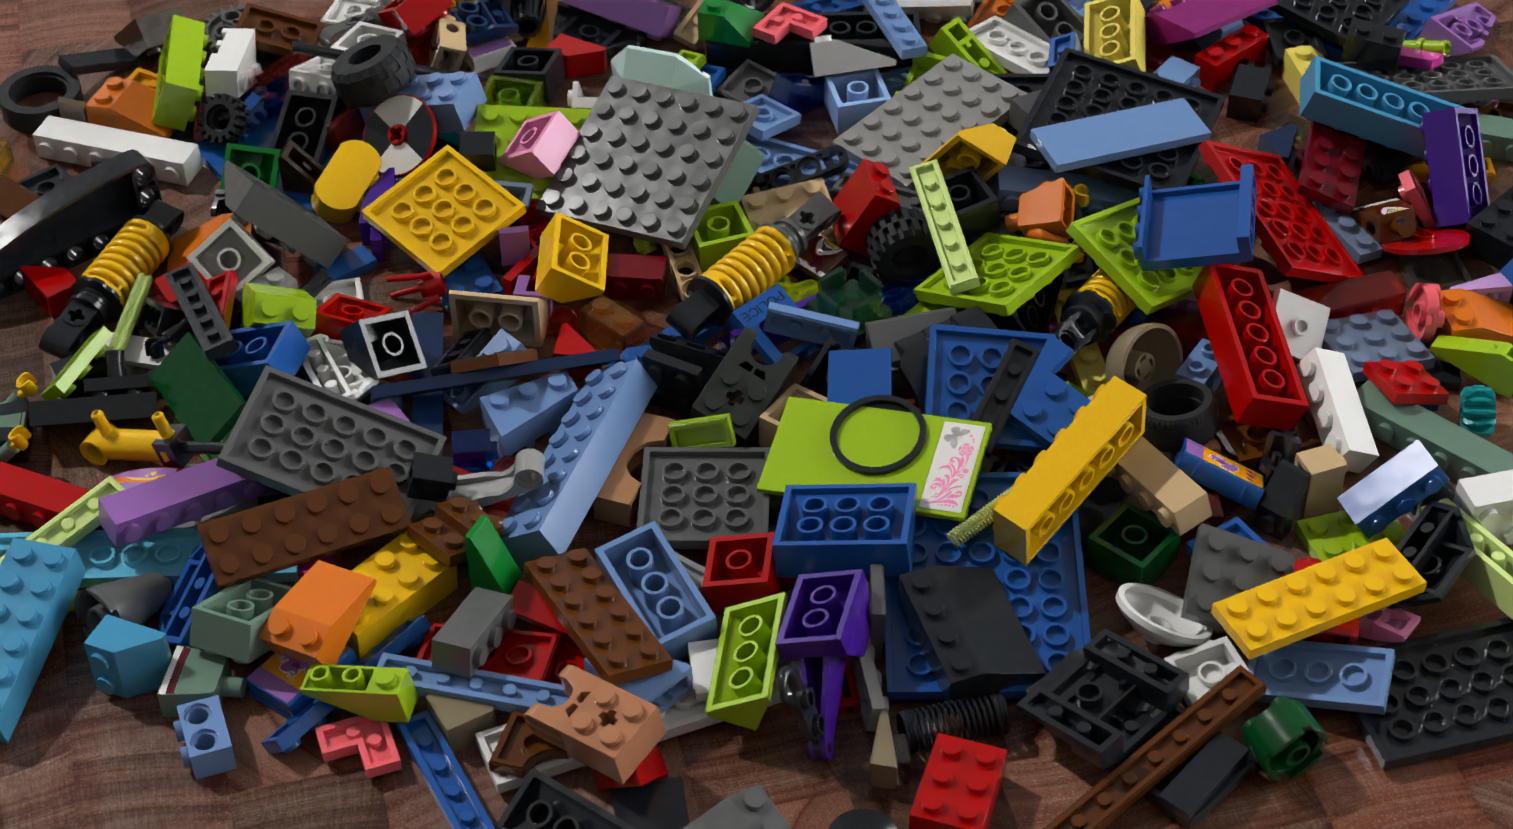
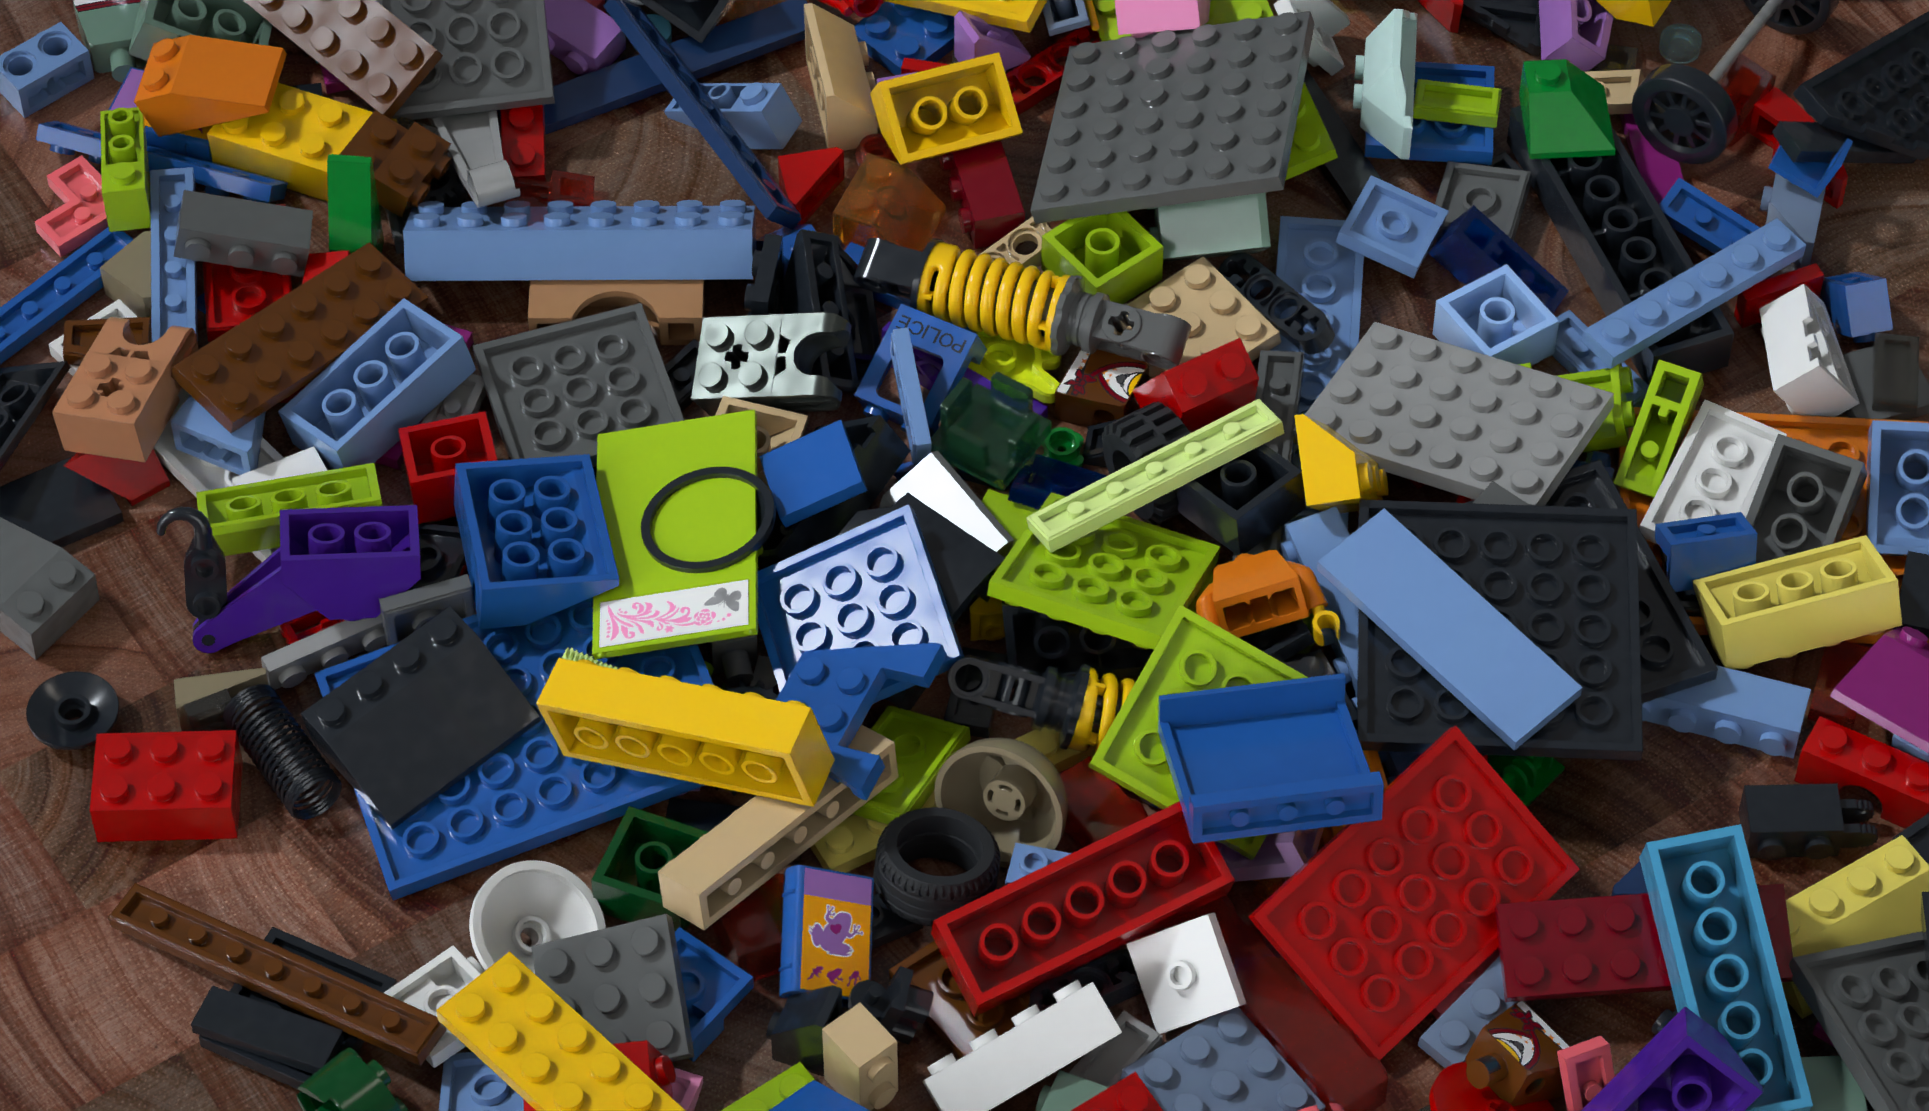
camera: 70 degrees right, 10 degrees up
(431, 477) = (460, 101): black brick -> none
(466, 346) = (748, 68): black tile -> none
(474, 450) = (584, 142): clear blue brick -> none
(493, 360) = (699, 92): reddish brown tile -> none
(527, 411) = (663, 165): medium blue wedge -> none
(703, 432) = (681, 351): lime tile -> none
(788, 19) = (1598, 174): coral plate -> none
(840, 57) = (1555, 272): white slope -> none
(1005, 389) = (788, 634): black tile -> none
(1106, 698) = (341, 888): black slope -> none

